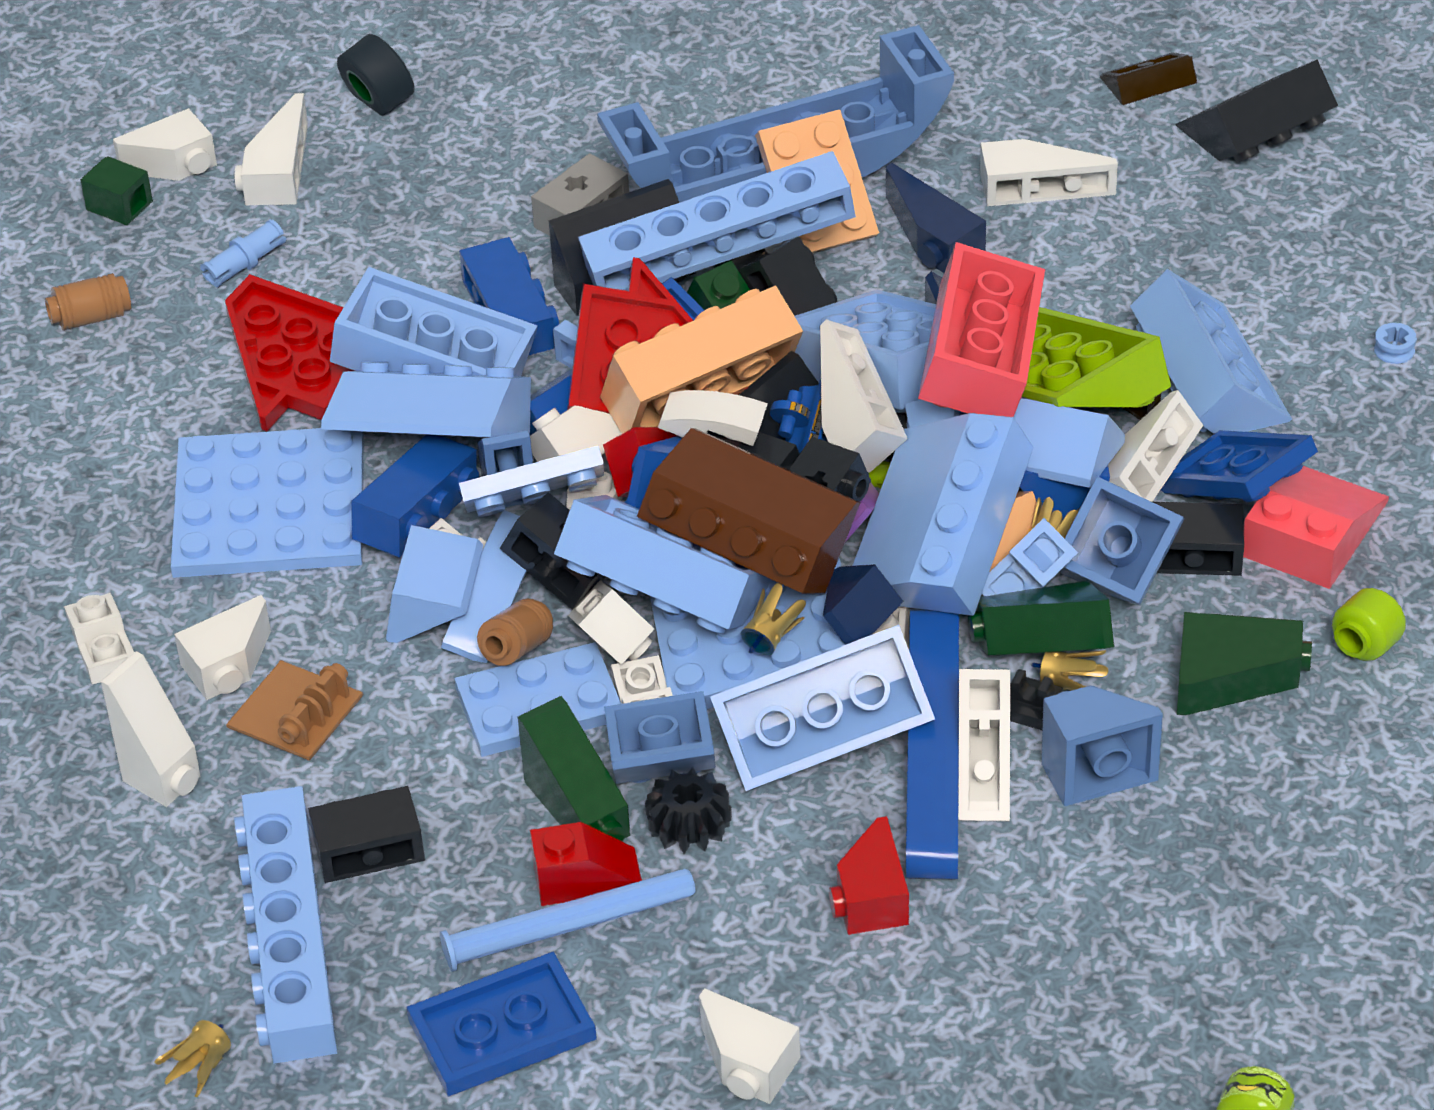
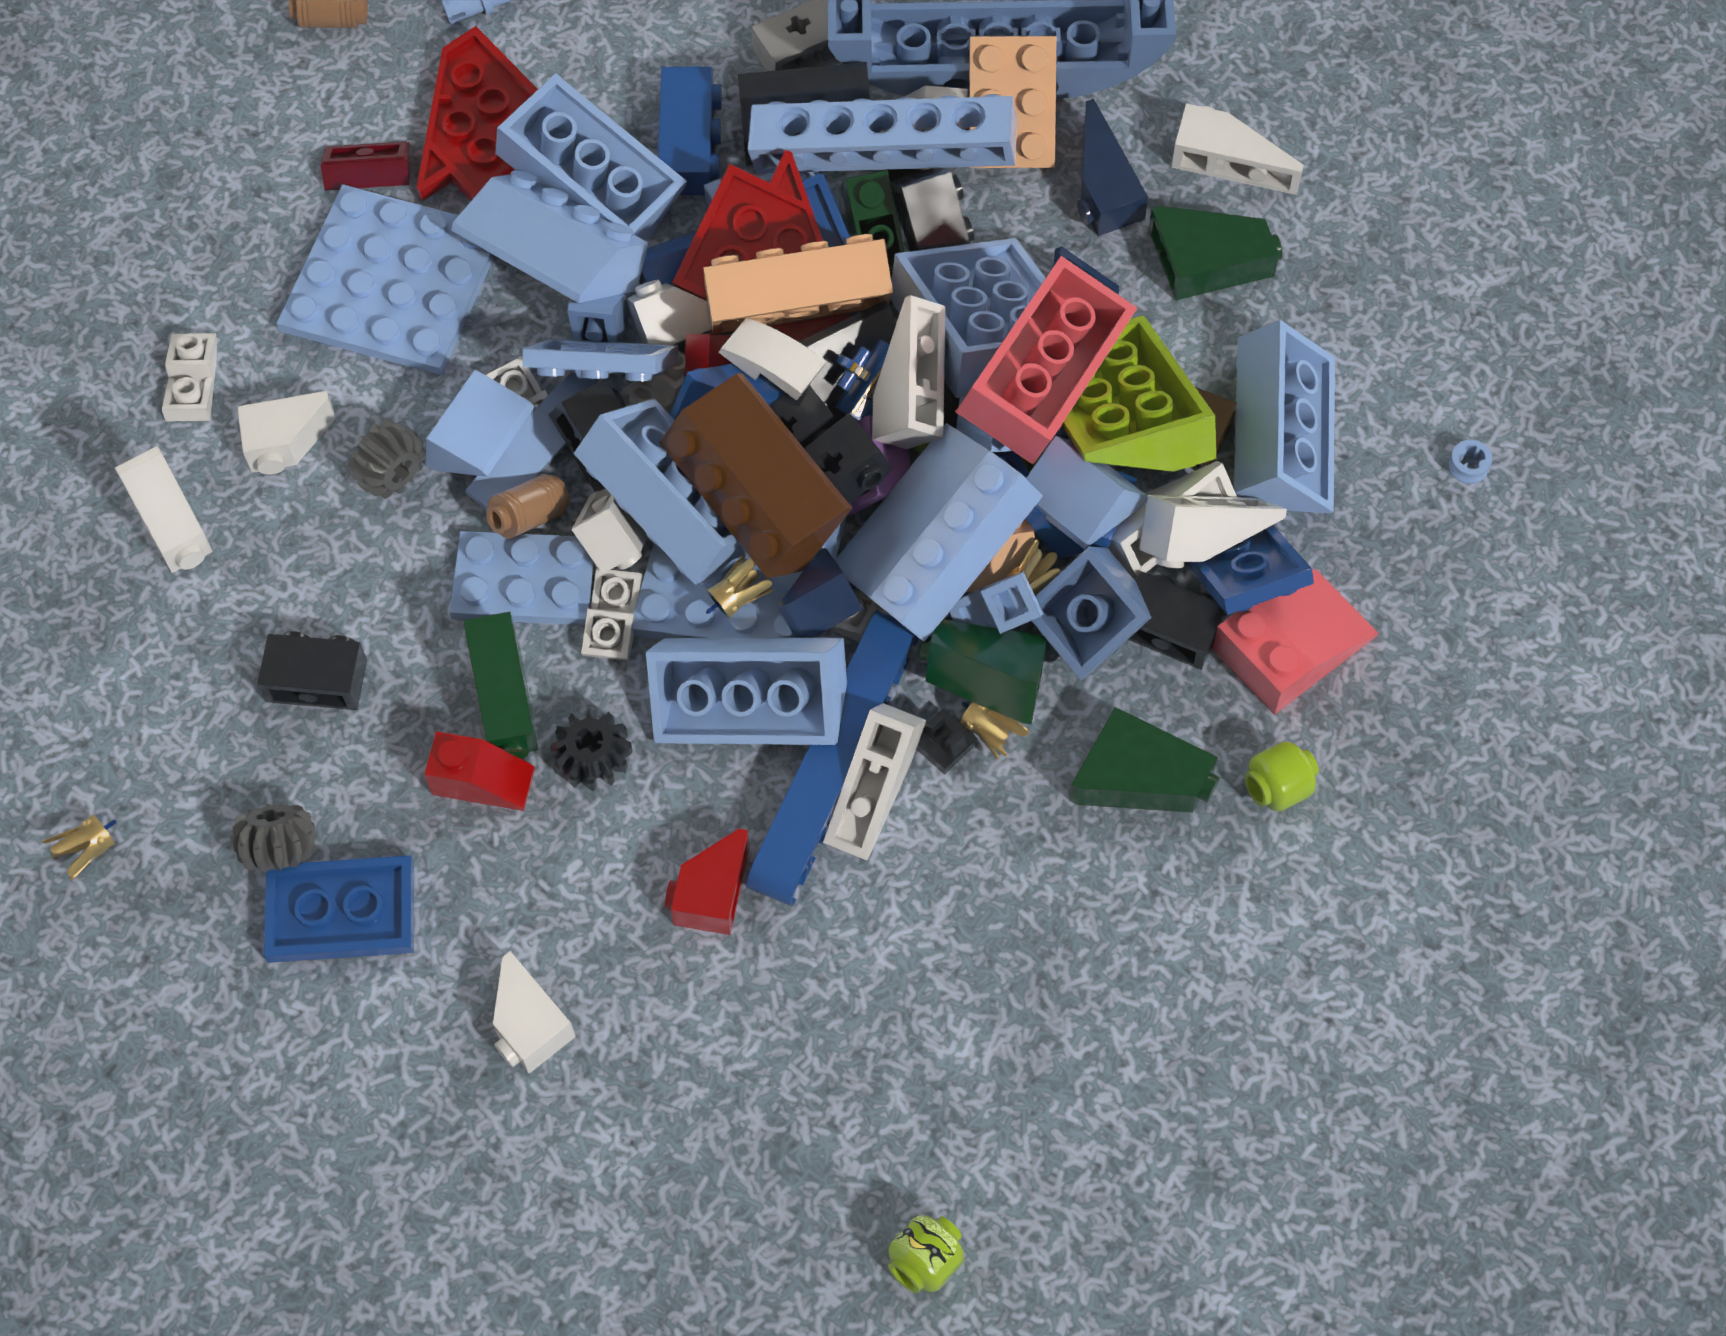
camera: 20 degrees right, 20 degrees up
(192, 418) = (366, 165): none -> dark red slope
(287, 926) = (187, 849): light blue brick -> none
(297, 708) = (316, 513): medium nougat hinge -> none
(352, 633) = (386, 458): none -> dark grey gear
(404, 976) = (273, 837): none -> dark grey gear
(412, 492) = (502, 325): blue brick -> none
(565, 917) = (442, 819): light blue axle -> none
(659, 737) = (591, 672): medium blue slope -> none
(1069, 247) = (1212, 249): none -> dark green slope
(1099, 743) = (967, 822): medium blue slope -> none
(1150, 77) = (1393, 68): dark brown slope -> none
(1183, 445) = (1200, 526): none -> white slope
(1262, 114) = (1473, 151): black slope -> none

